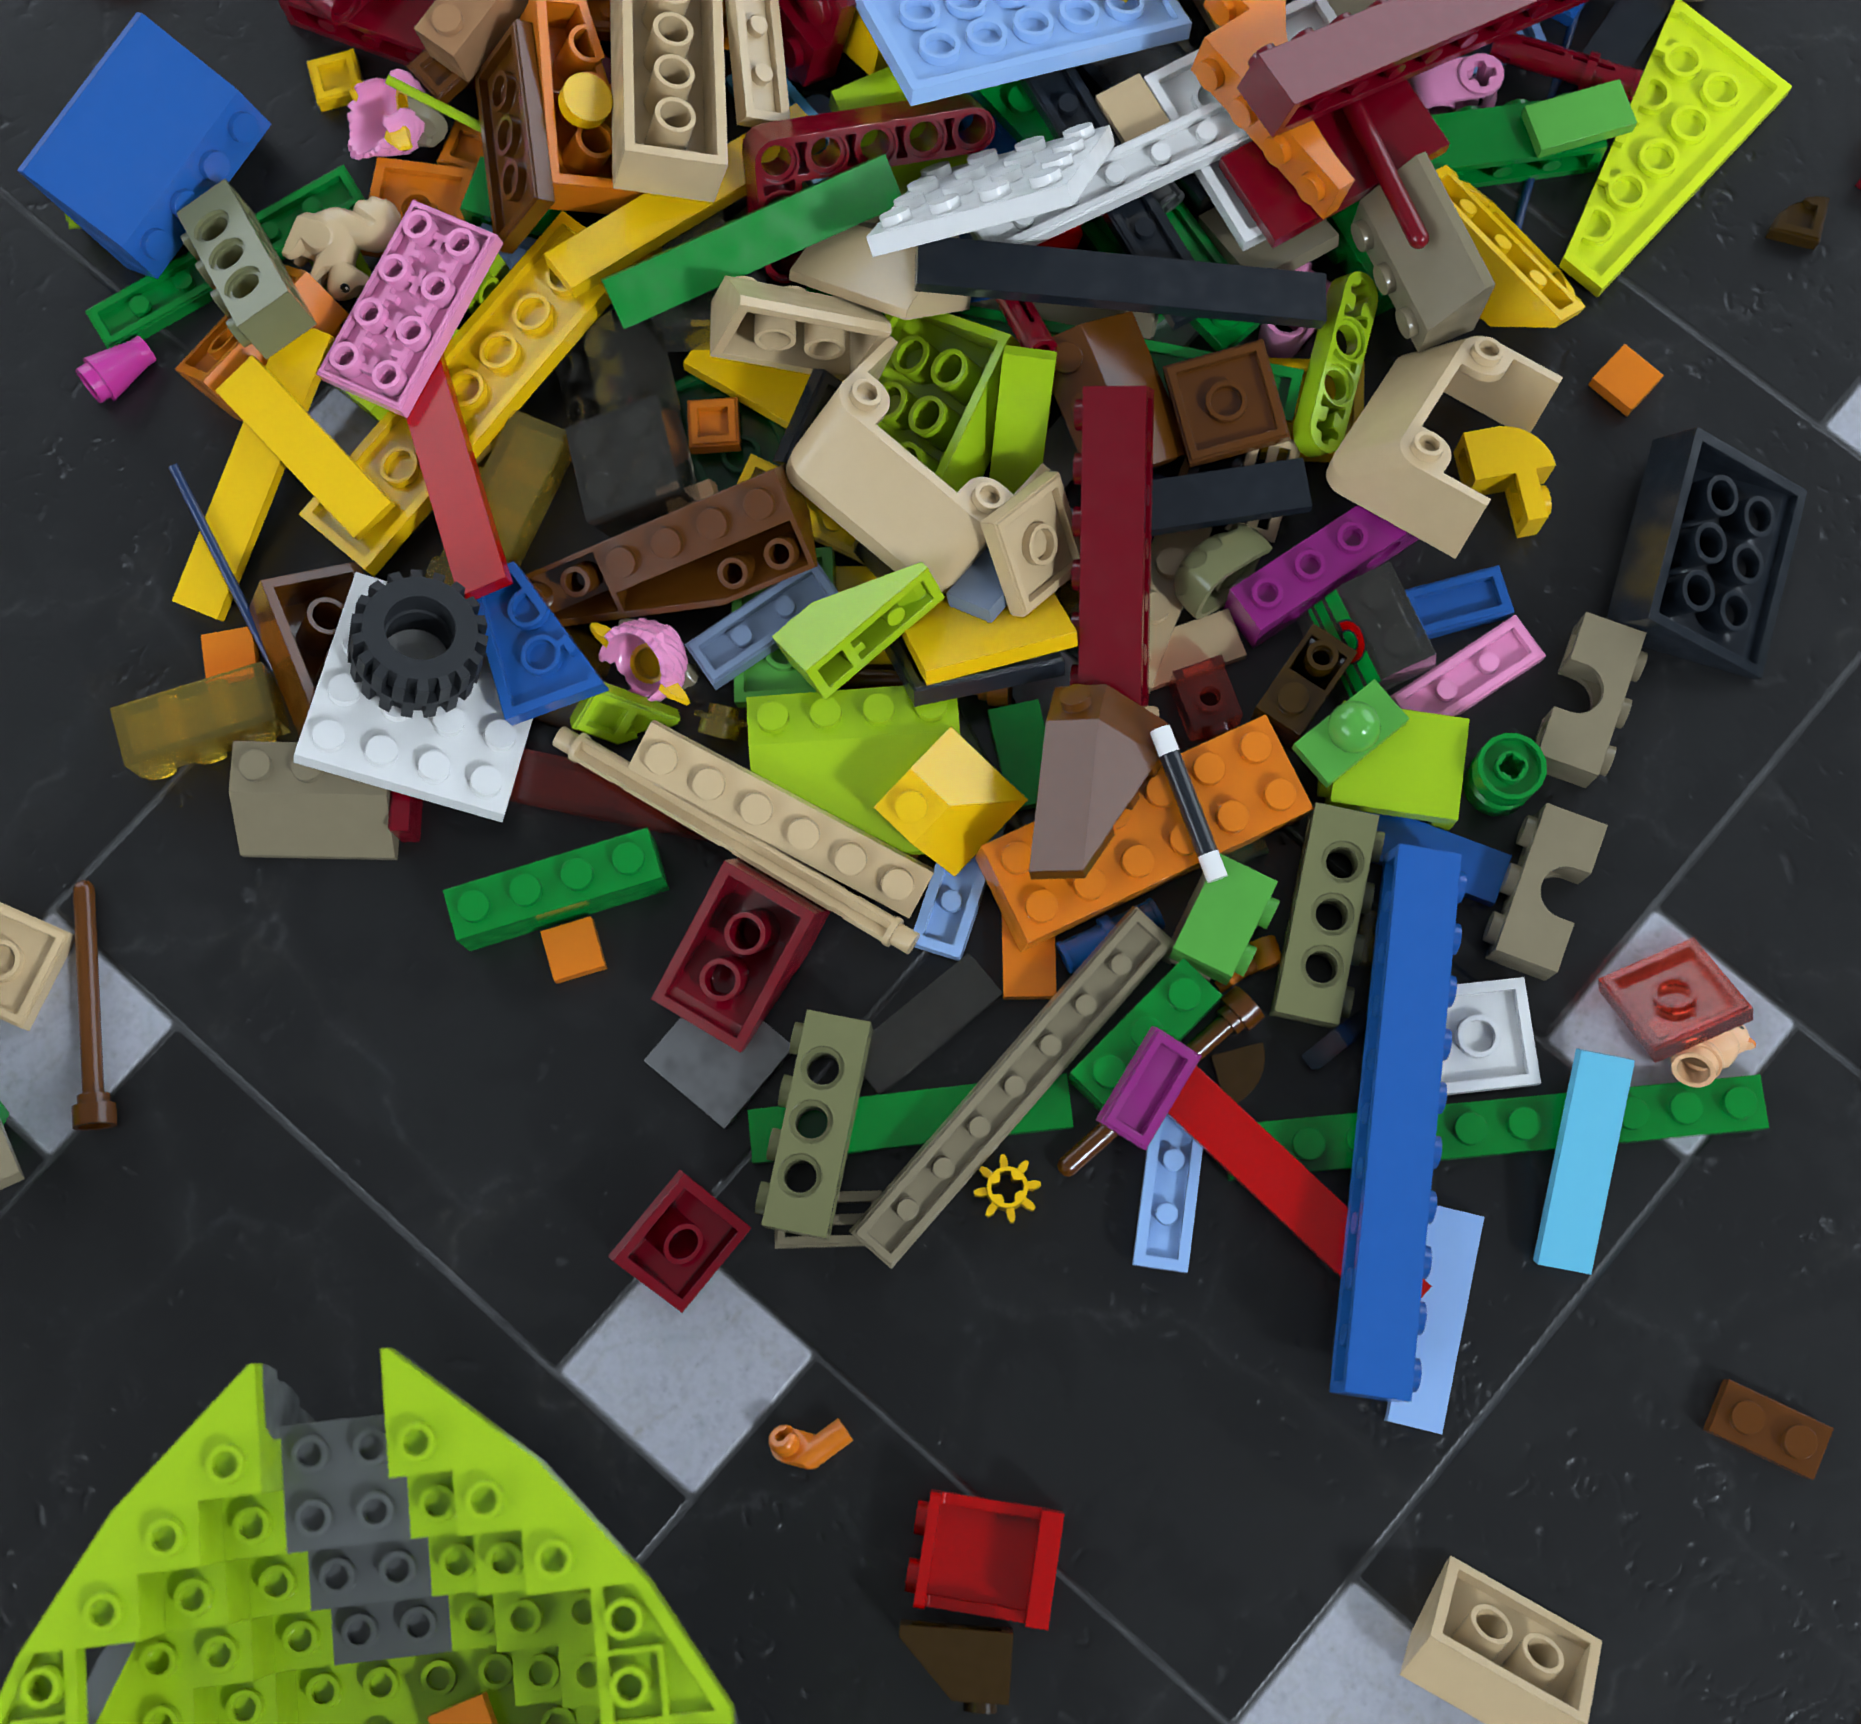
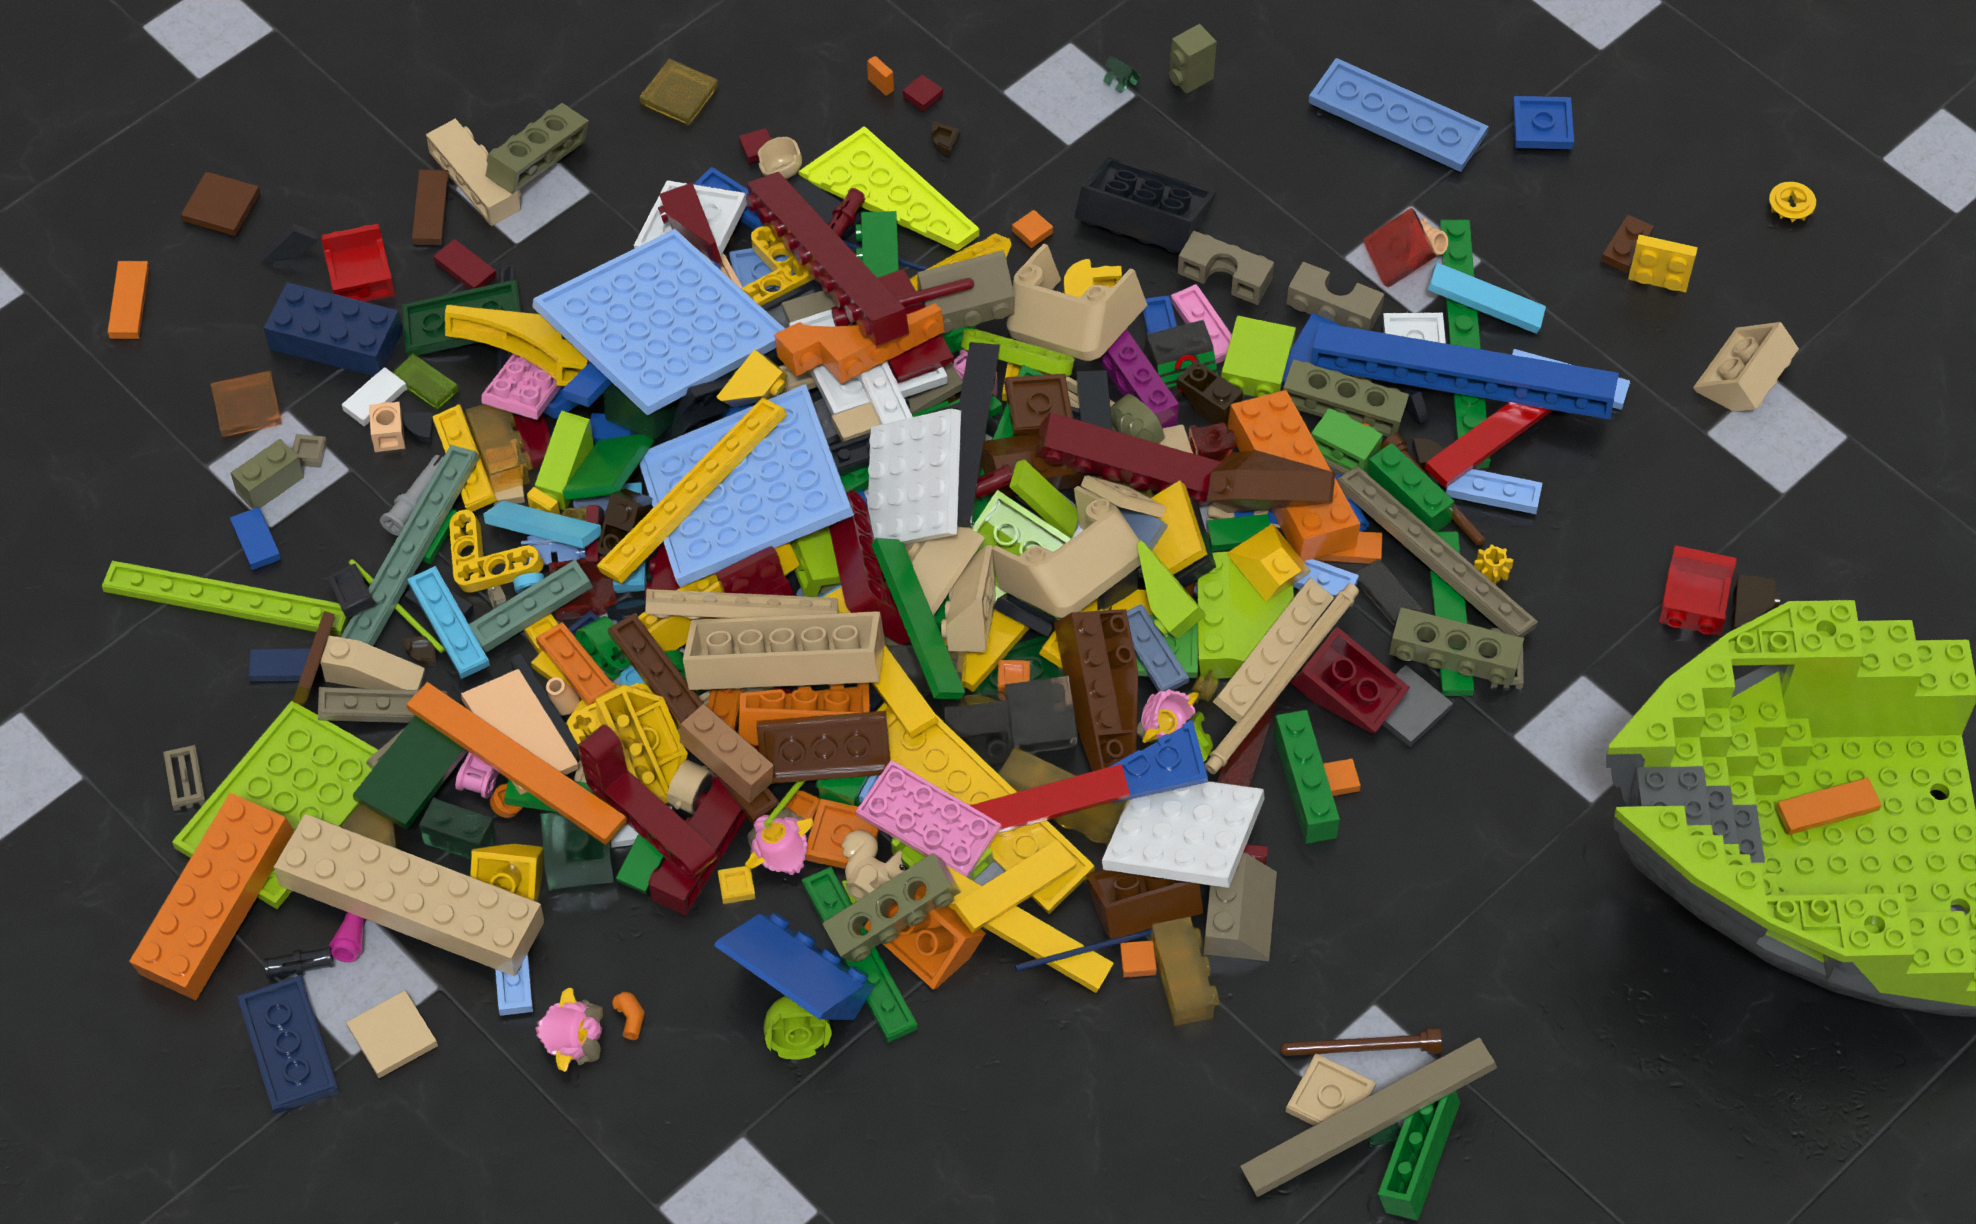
camera: 90 degrees left, 20 degrees down
(114, 369) = (934, 1020): dark pink cone -> none
(424, 606) = (1162, 810): black tyre -> none
(585, 100) = (816, 694): yellow tile -> none
(680, 1241) = (1515, 730): dark red slope -> none
(807, 1449) = (1637, 675): orange arm -> none
(1148, 1088) = (1444, 478): magenta tile -> none
(1188, 804) = (1285, 438): black bar -> none
(1350, 733) = (1244, 367): bright green tile -> none
(1504, 774) = (1269, 302): green wheel -> none
(1578, 118) = (880, 219): bright green tile -> none
(1709, 1492) = (1662, 263): none -> yellow plate

